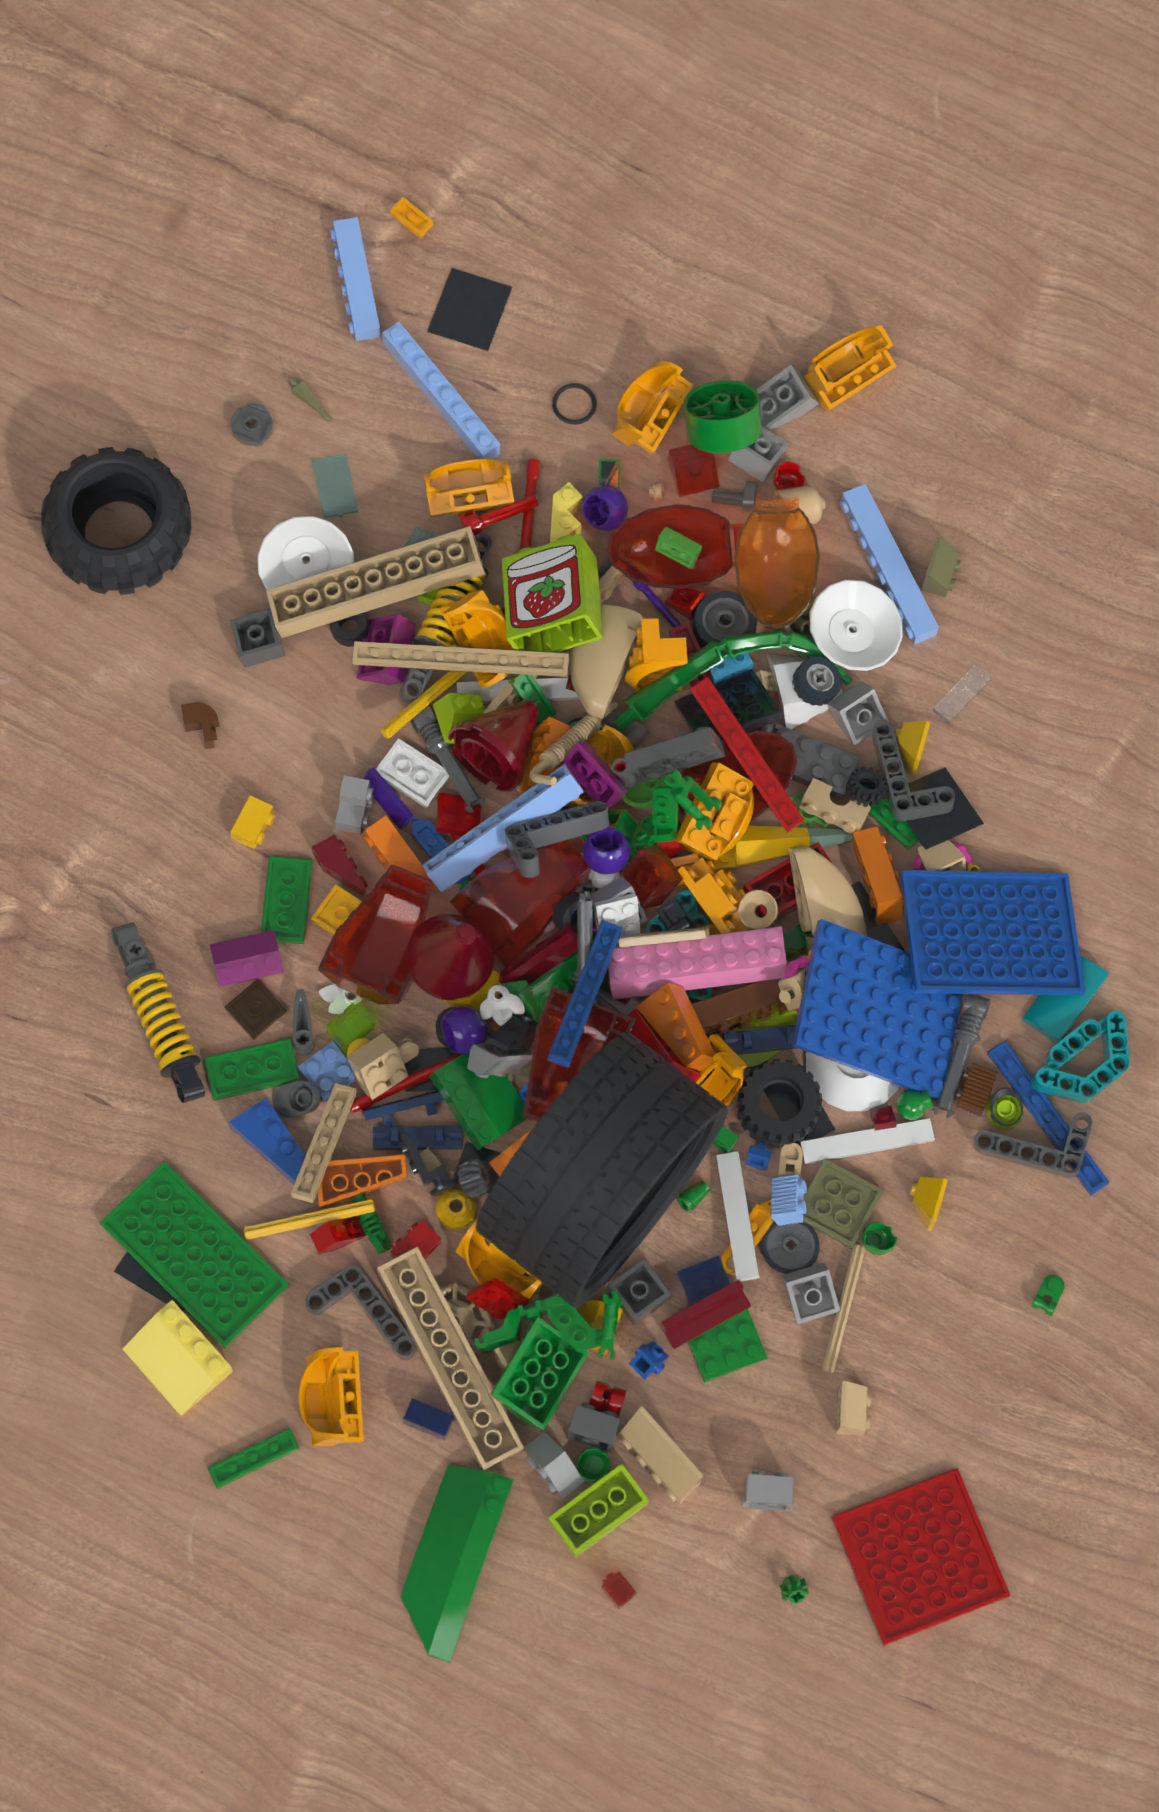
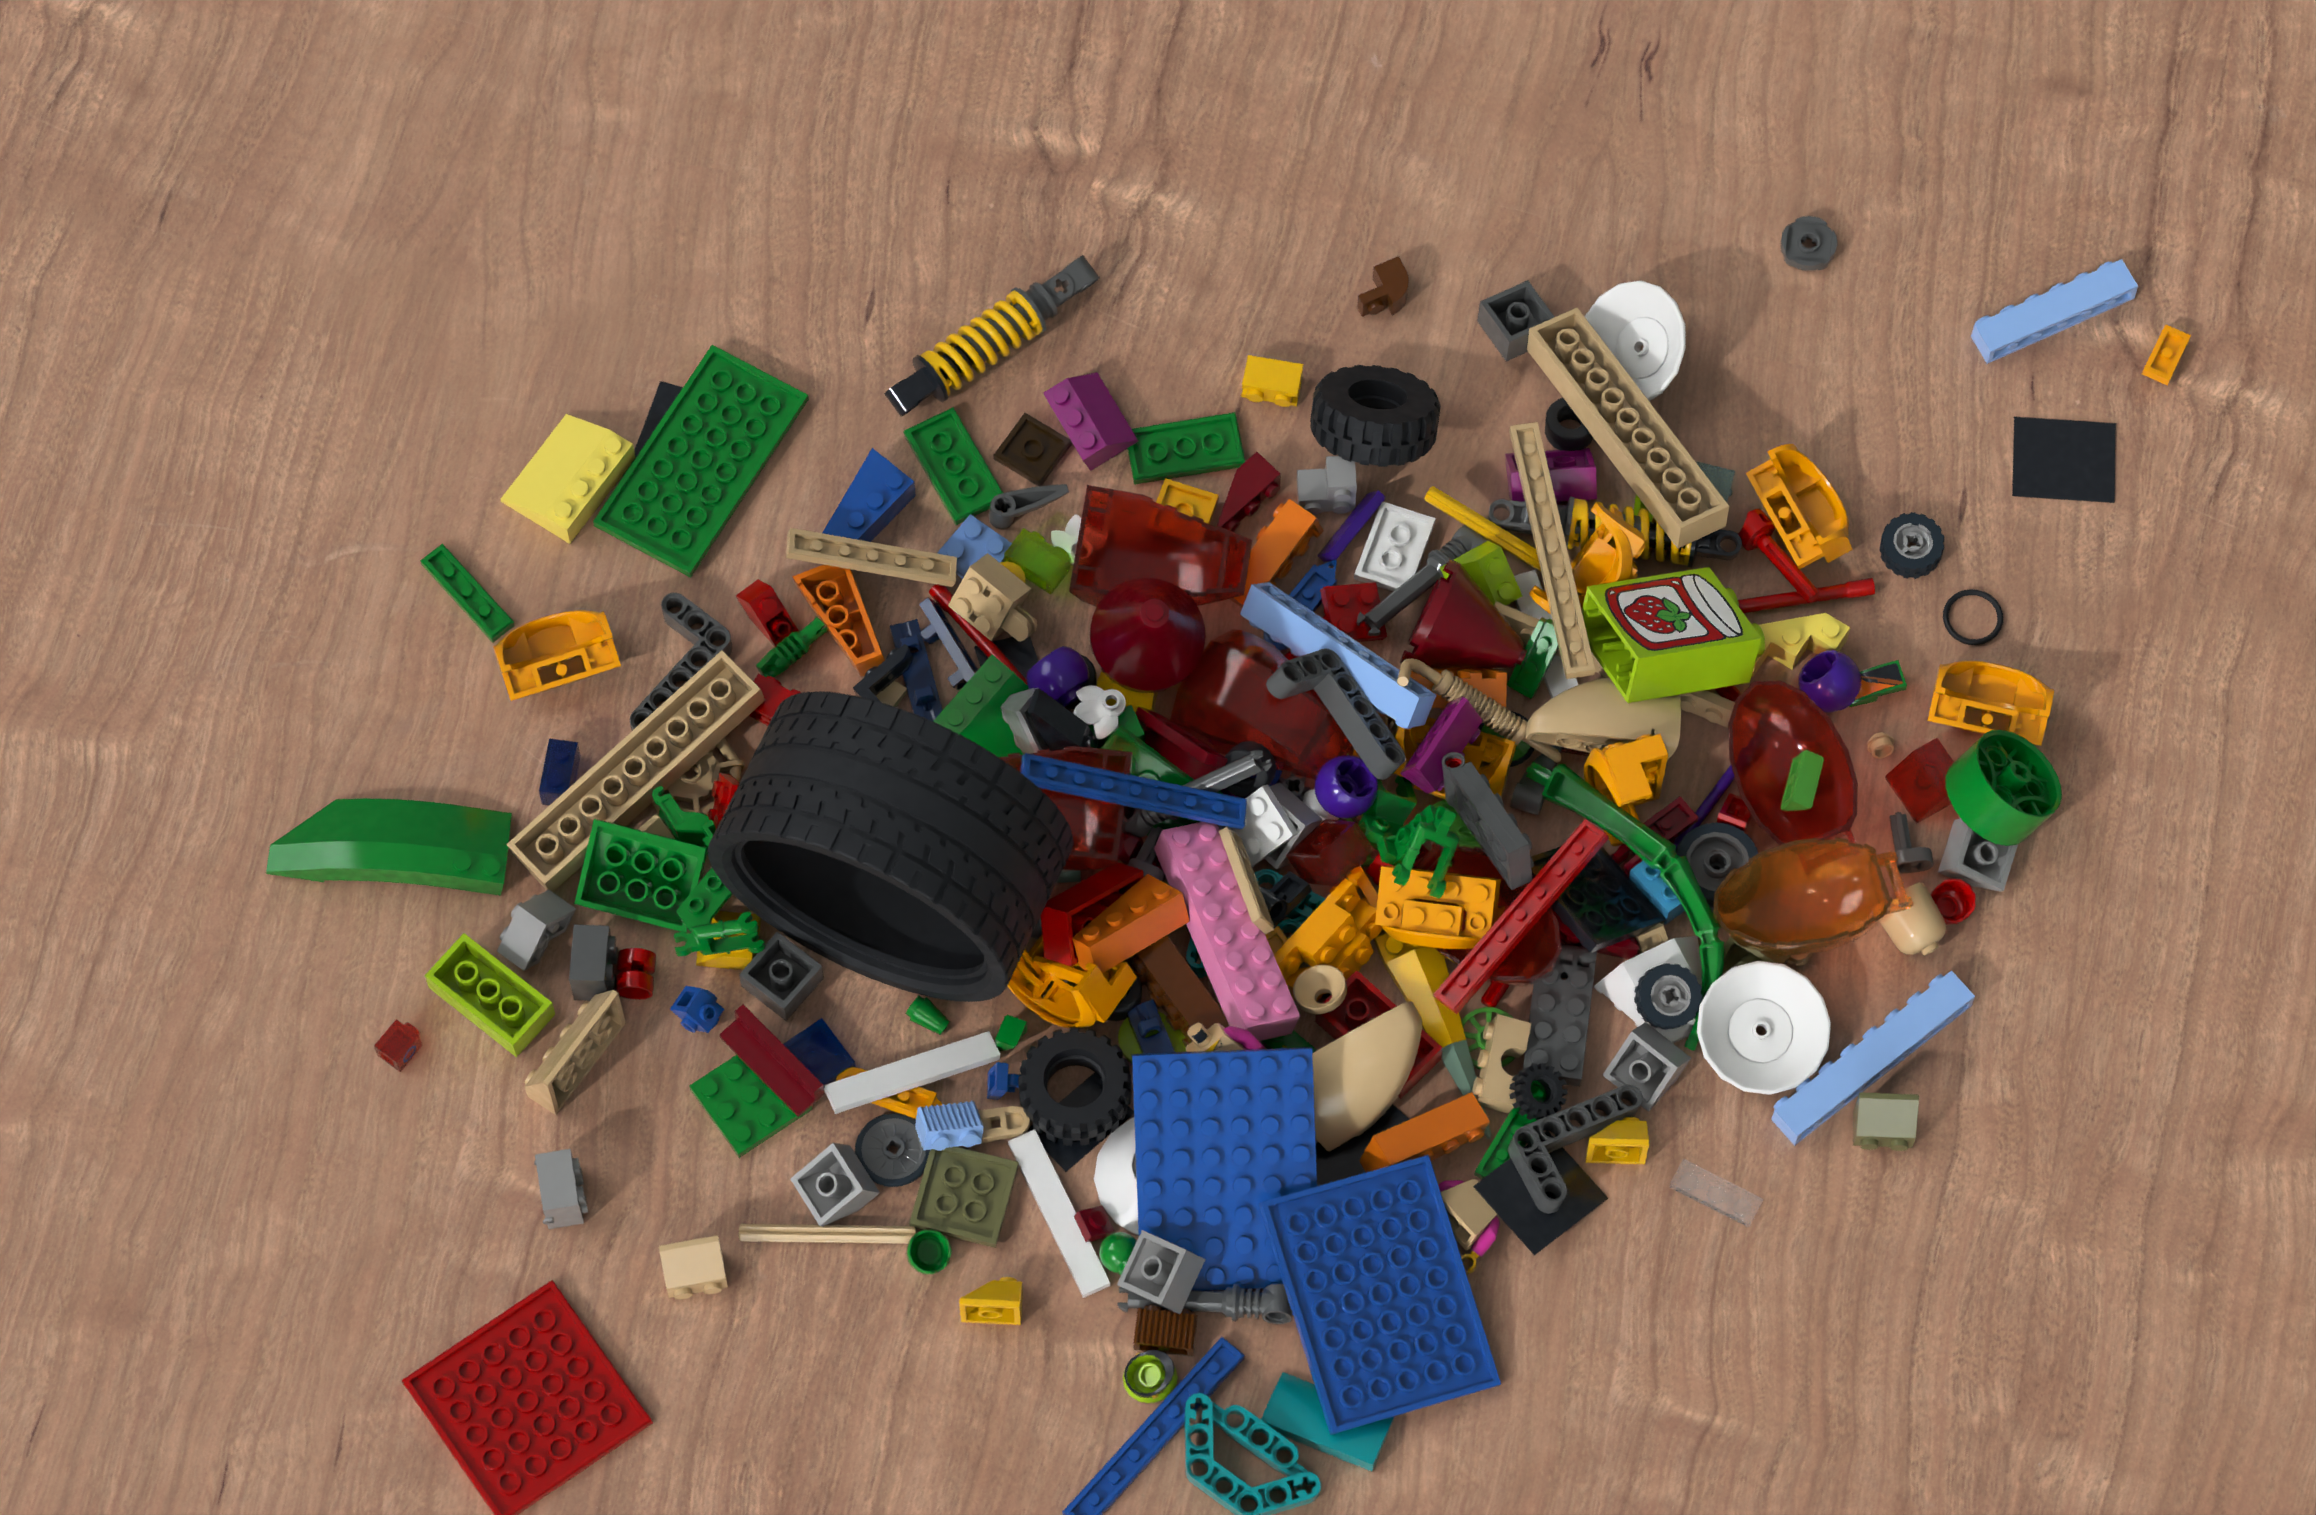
camera: 80 degrees right, 5 degrees down
(108, 479) = (1620, 61): black tyre -> none
(297, 1099) = (928, 524): dark grey cap -> none
(300, 737) = (1375, 415): none -> black tyre
(303, 392) = (1875, 290): olive piece -> none
(309, 1219) = (777, 574): yellow axle -> none
(335, 486) = (1759, 362): clear light blue piece -> none
(440, 392) = (1927, 450): light blue brick -> none
(514, 414) = (1912, 560): none -> black wheel
(593, 1464) = (548, 977): green hair -> none
(785, 398) = (2065, 866): light grey slope -> none
(794, 1589) = (446, 1252): green gear -> none
(843, 357) = (2144, 923): light orange piece -> none
(940, 1077) = (1161, 1272): none -> light grey slope
(1039, 1151) = (1095, 1427): dark grey beam -> none
(1051, 1287) = (923, 1488): green plate -> none

